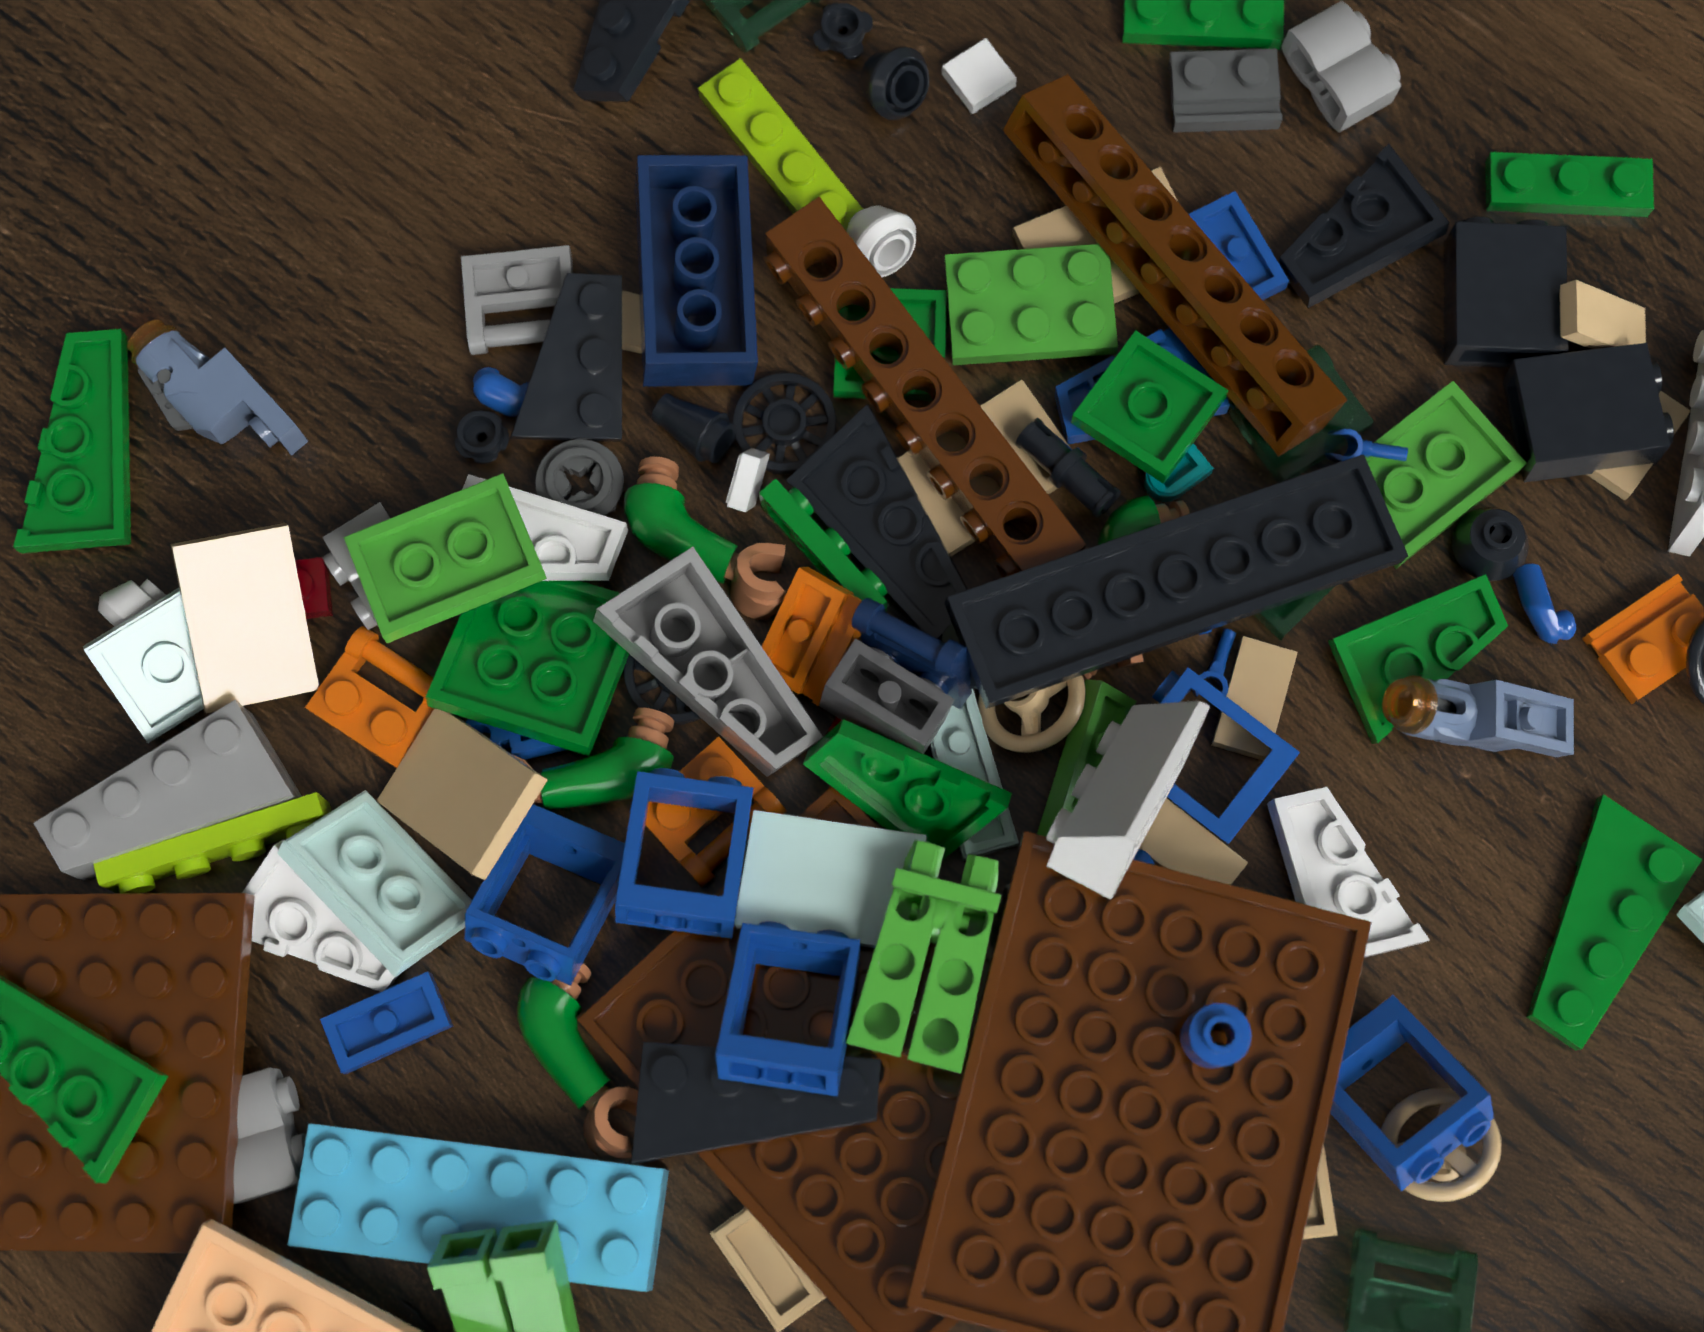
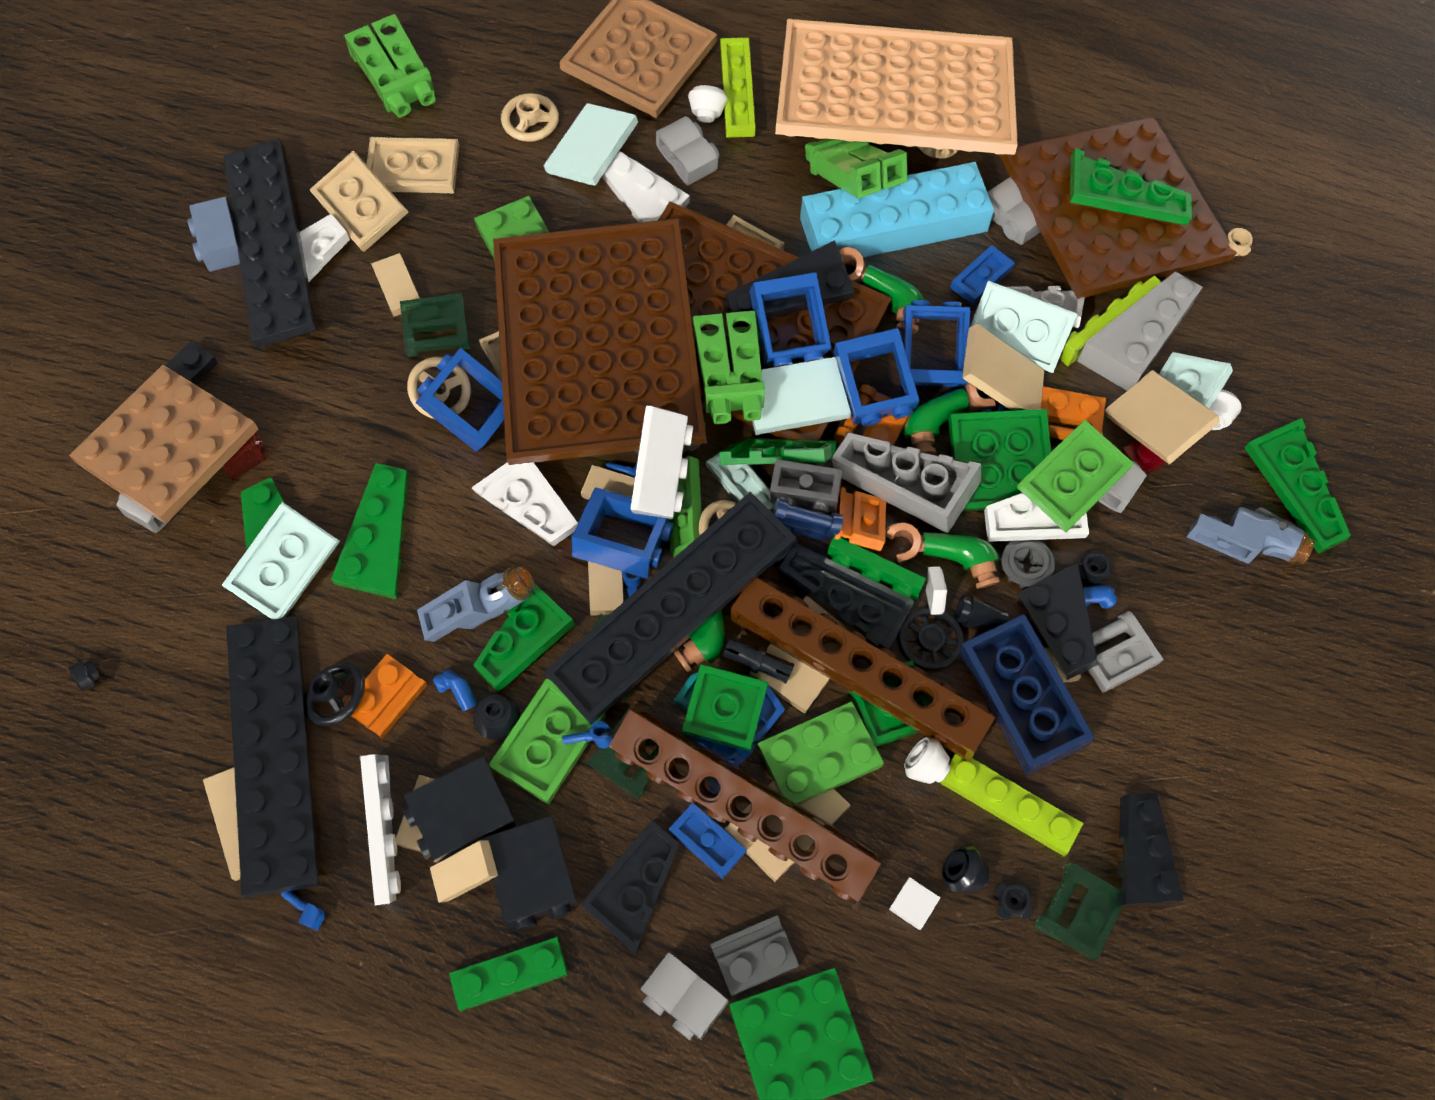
camera: 155 degrees right, 10 degrees down
(1198, 1043) = (571, 364): blue brick -> none

